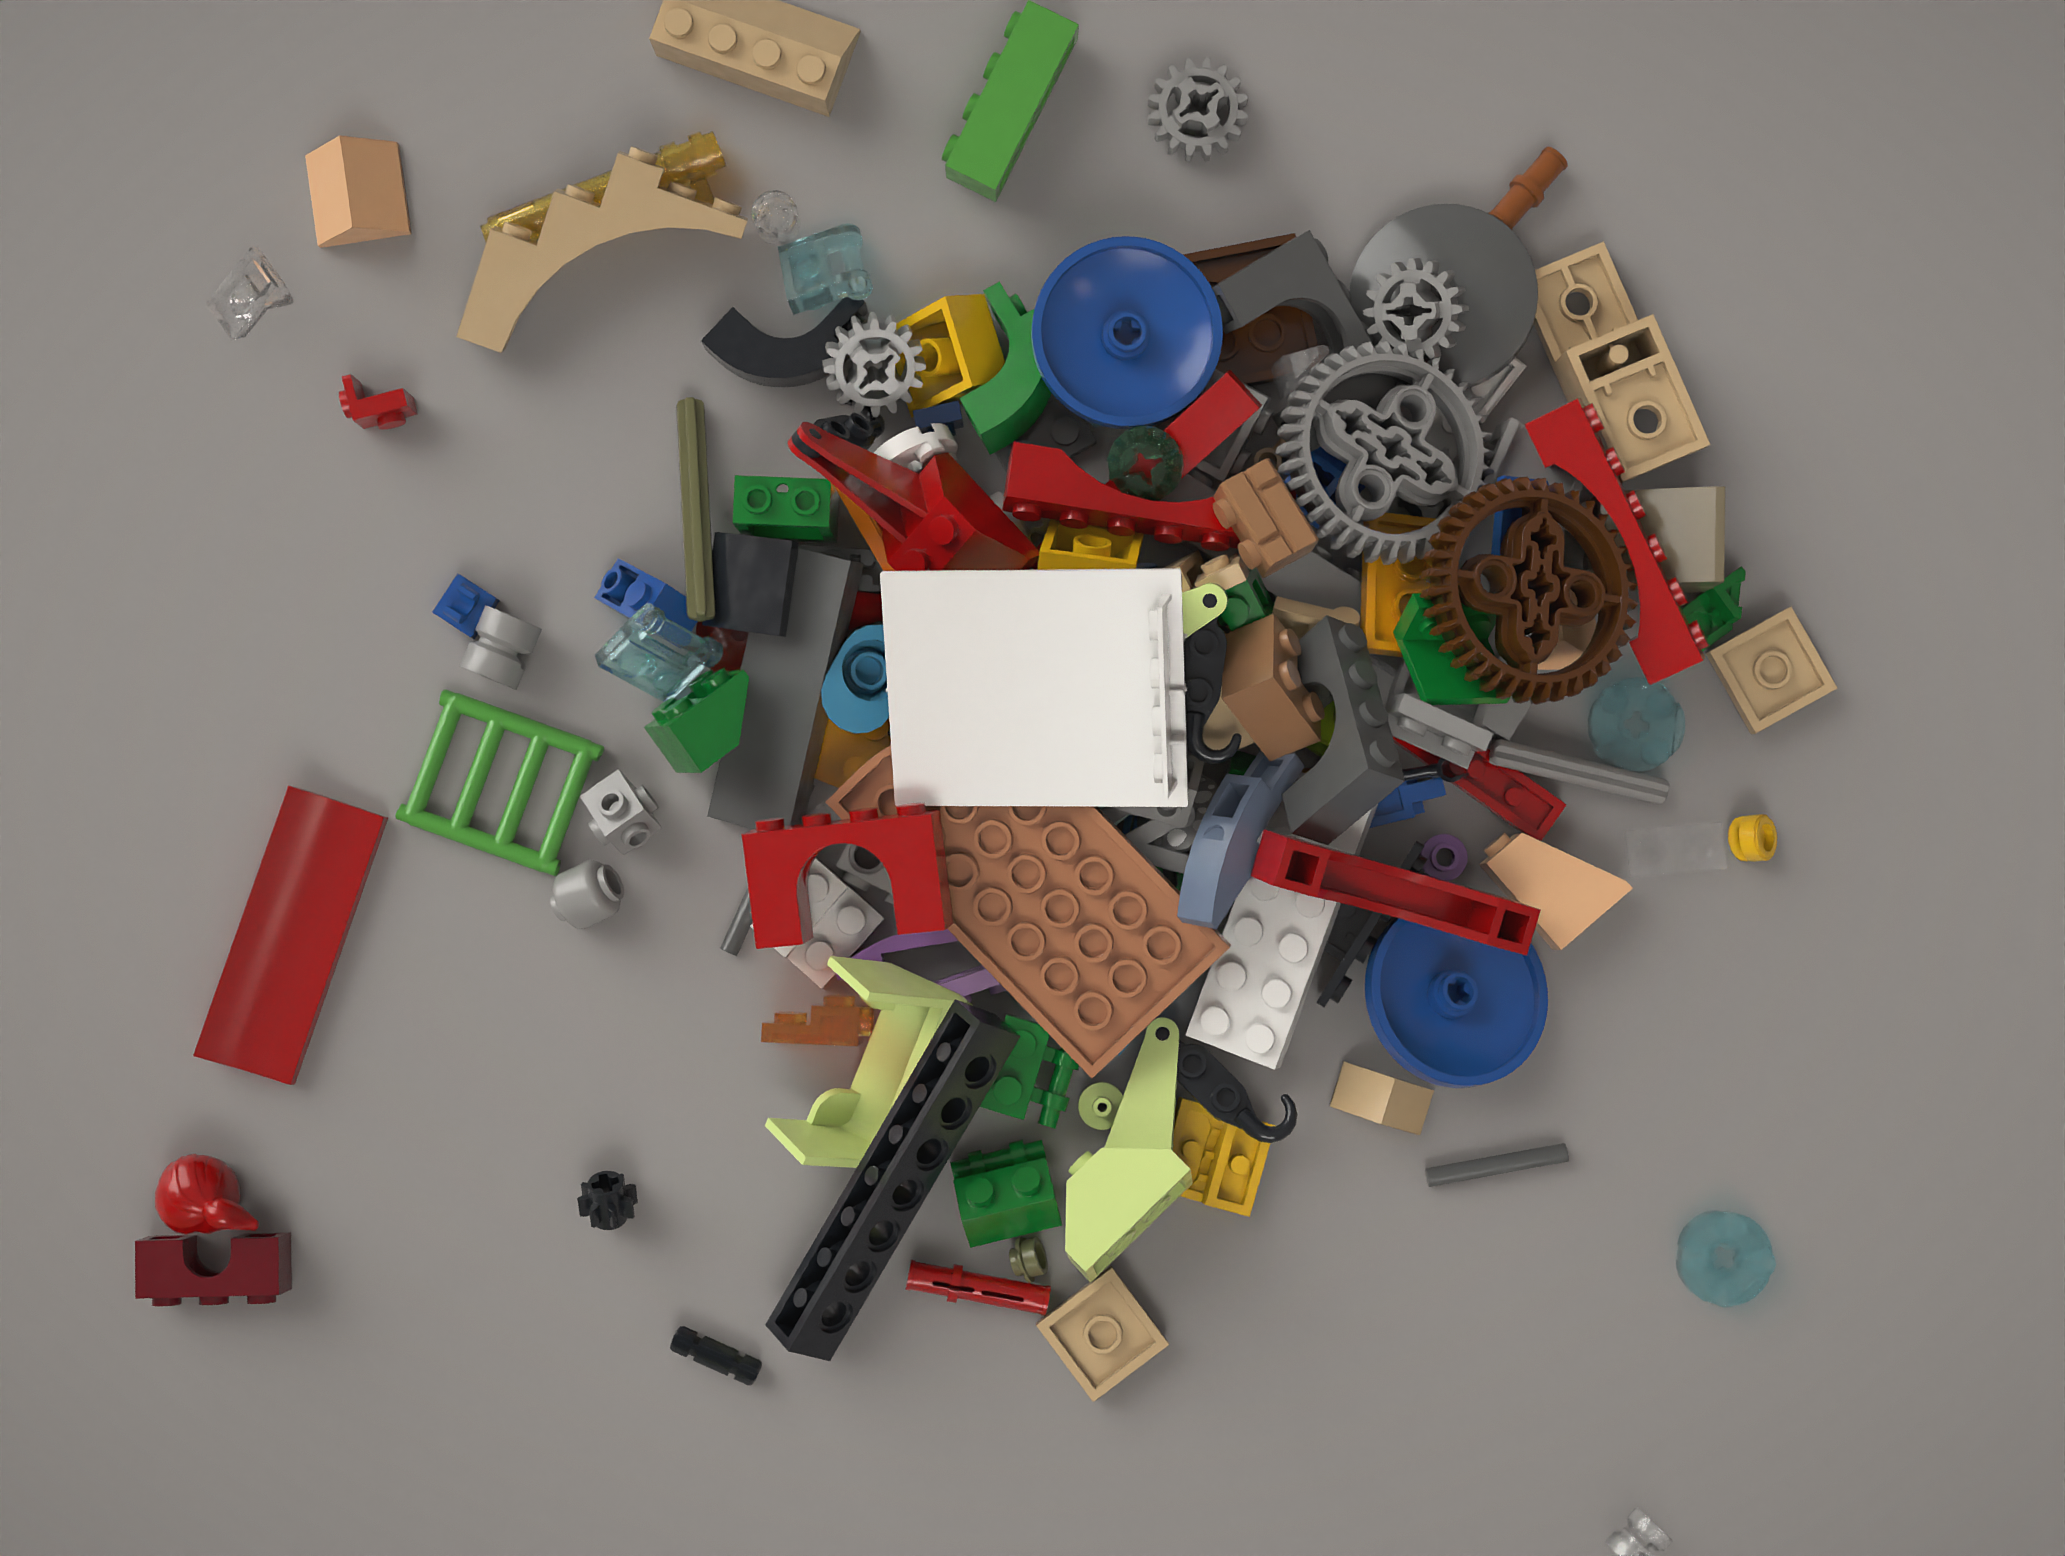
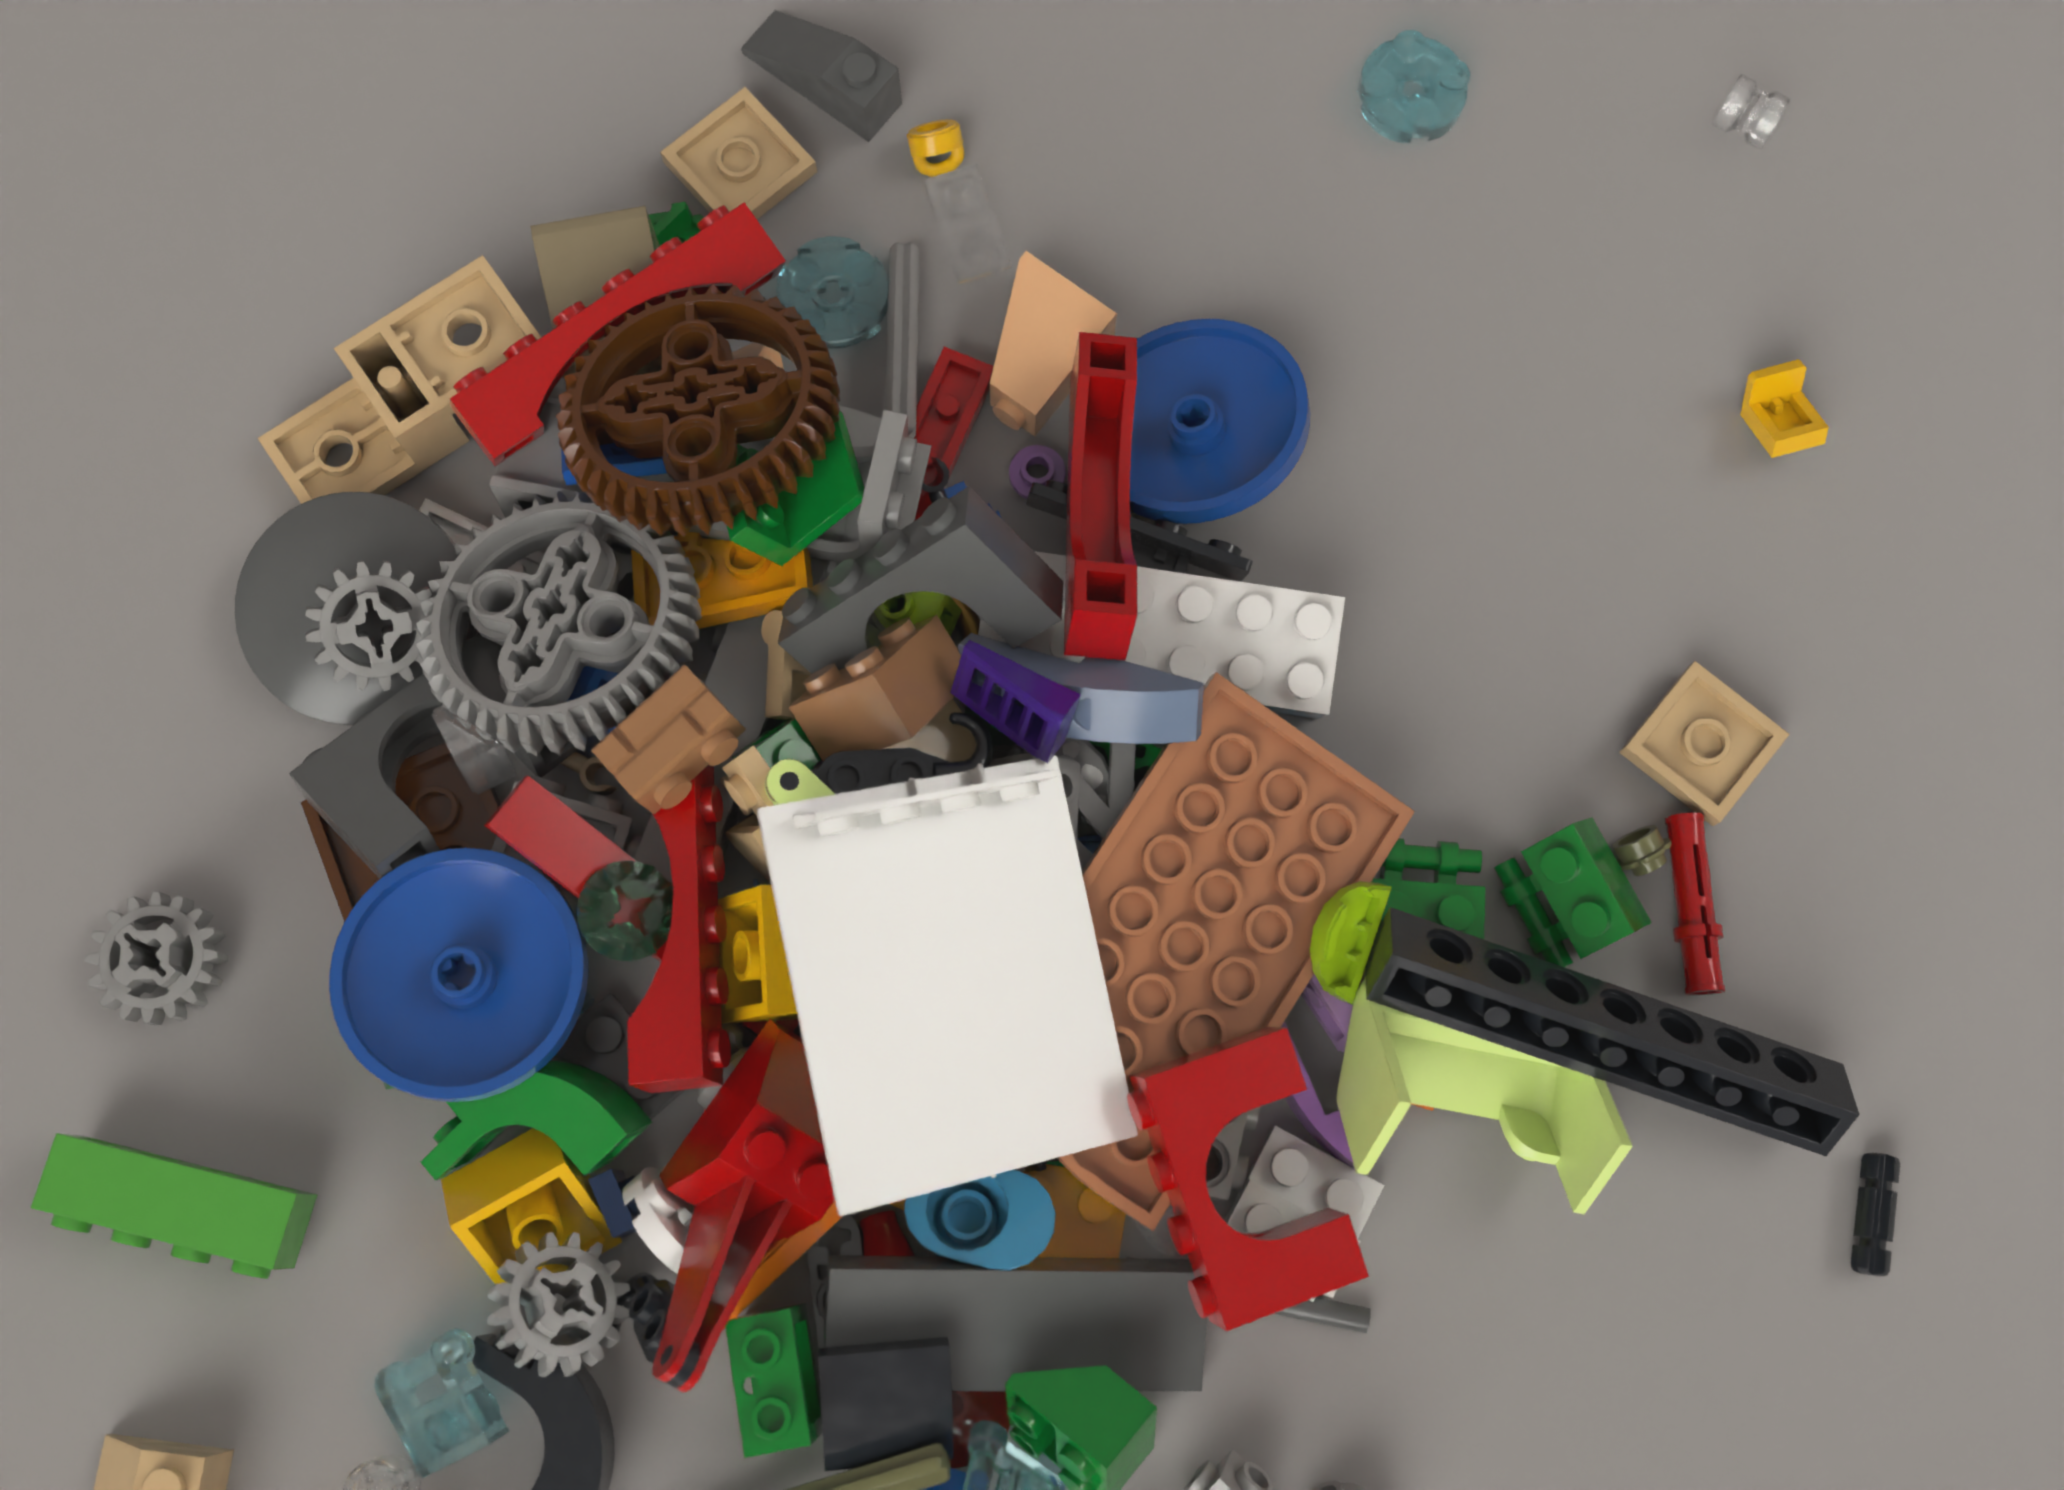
camera: 105 degrees left, 10 degrees down
(607, 1200) = (1730, 1404): black gear -> none
(832, 1023) = (1434, 1153): clear orange plate -> none
(1007, 999) = (1346, 936): none -> lime tile
(1088, 1104) = (1429, 817): yellowish green tile -> none
(1137, 1172) = (1510, 736): yellowish green slope -> none
(1221, 1158) = (1456, 660): yellow slope -> none
(1235, 784) = (1047, 708): none -> dark purple slope
(1363, 1482) = (1780, 411): none -> yellow bracket
(1381, 1098) = (1337, 487): tan slope -> none
(1496, 1165) = (1377, 345): dark grey bar -> none
(1529, 188) = (204, 539): dark orange pin -> none
(1843, 759) = (828, 71): none -> dark grey slope

